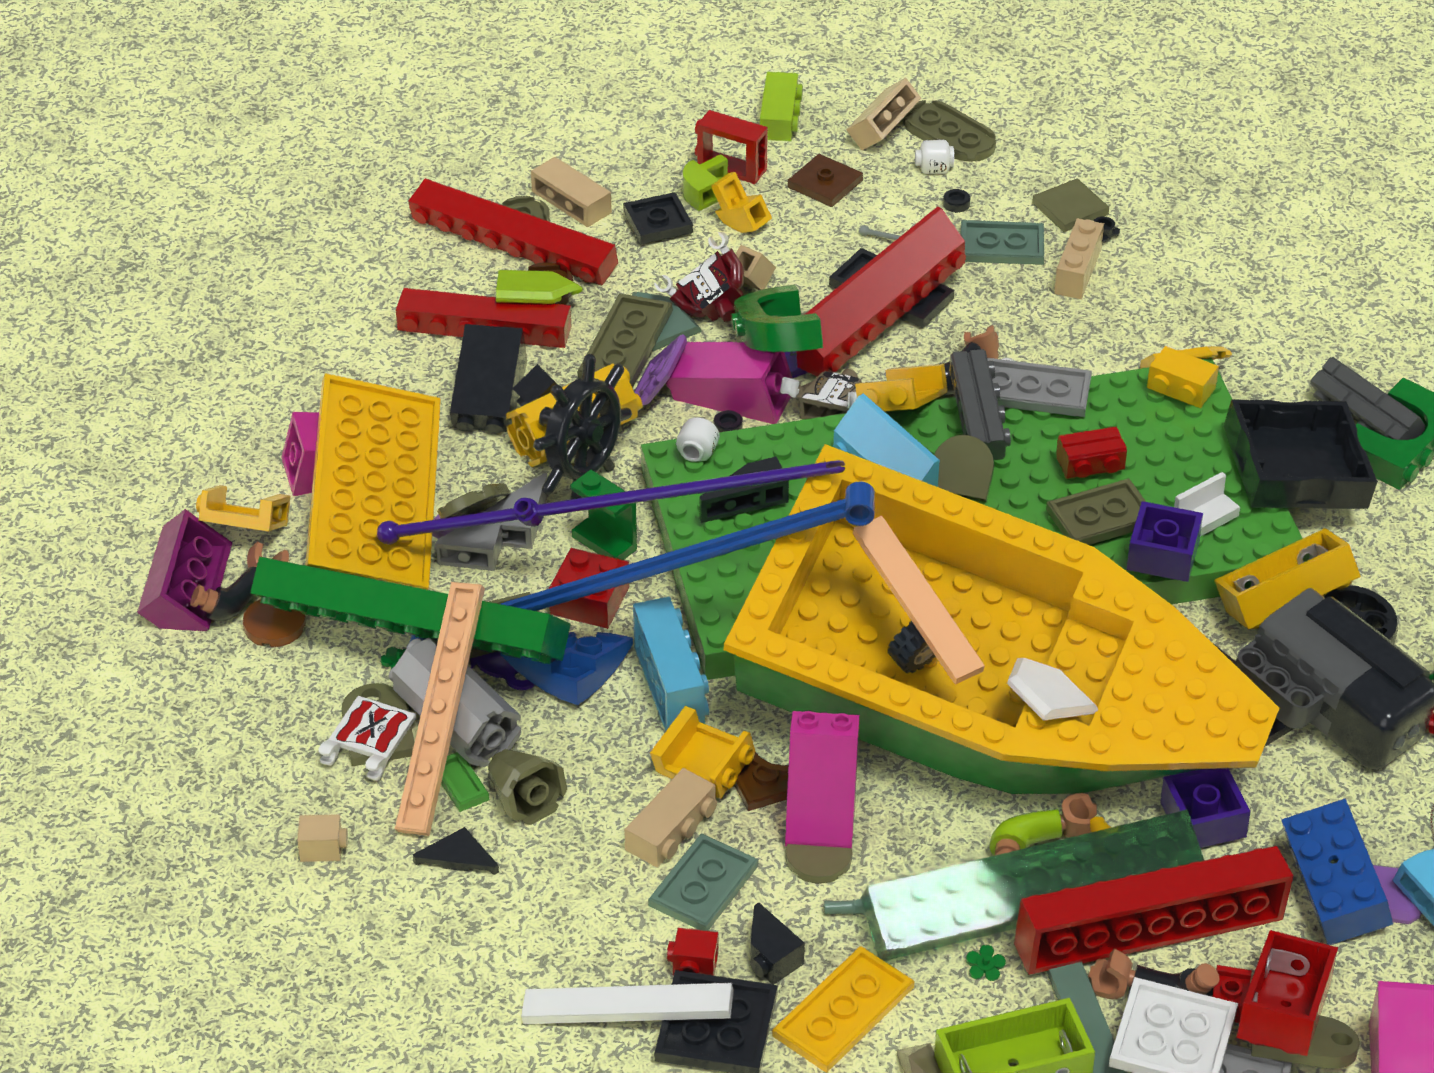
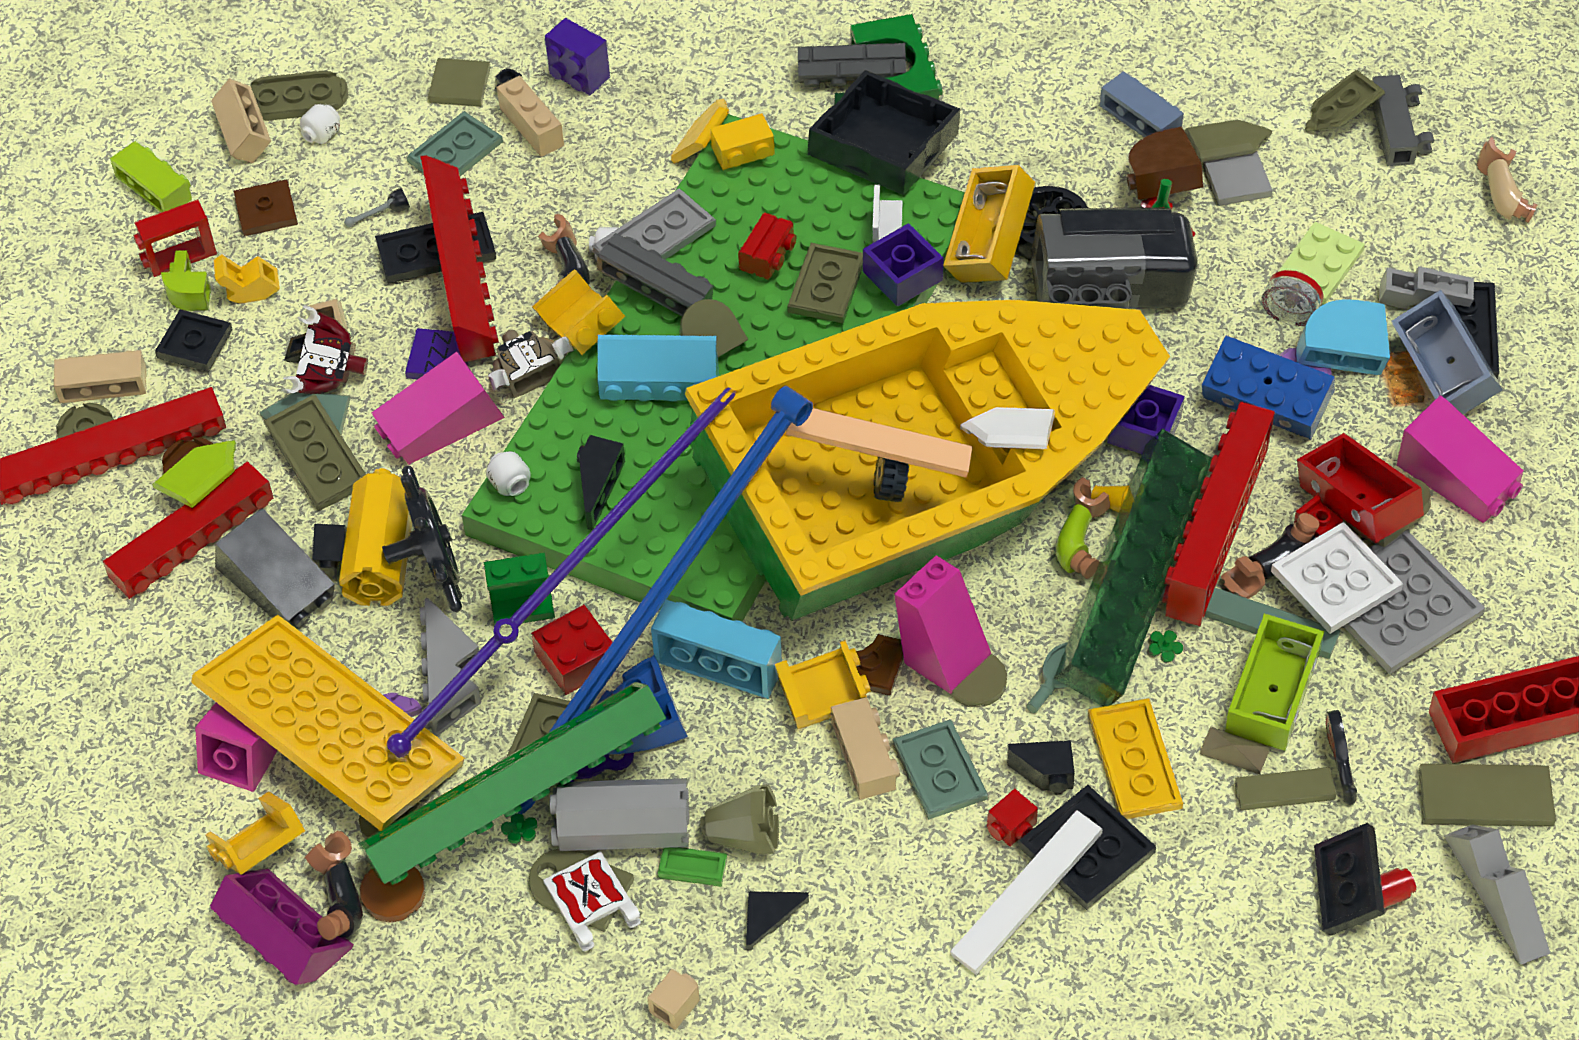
camera: 50 degrees left, 10 degrees up
(440, 709) = (641, 826): light nougat tile -> none
(474, 502) = (424, 665): olive tile -> none
(660, 370) = (381, 446): medium lavender tile -> none
(728, 421) = (475, 446): black tile -> none
(774, 322) = (439, 356): green arch -> none
(956, 200) = (378, 144): black tile -> none
(1164, 244) = (577, 56): none -> dark purple brick

